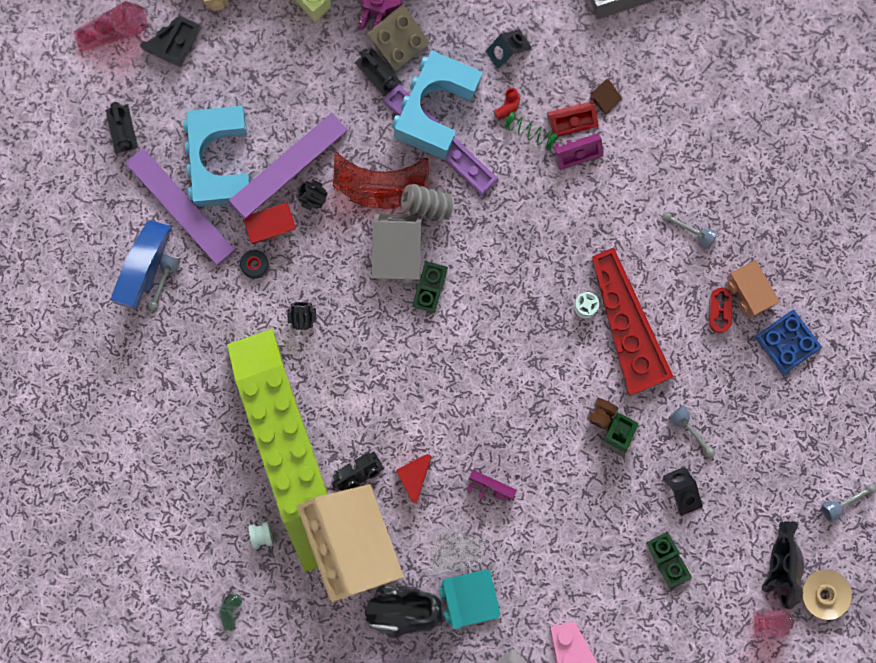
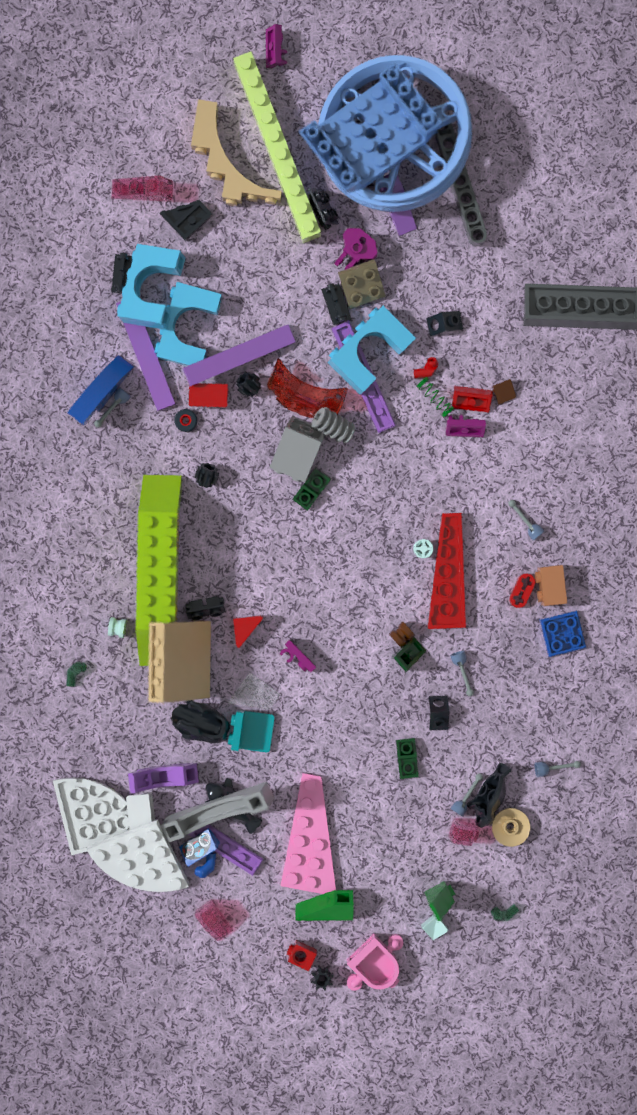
camera: 20 degrees right, 10 degrees up
(143, 104) = (145, 262): none -> medium azure arch
(756, 594) = (460, 806): none -> hinge

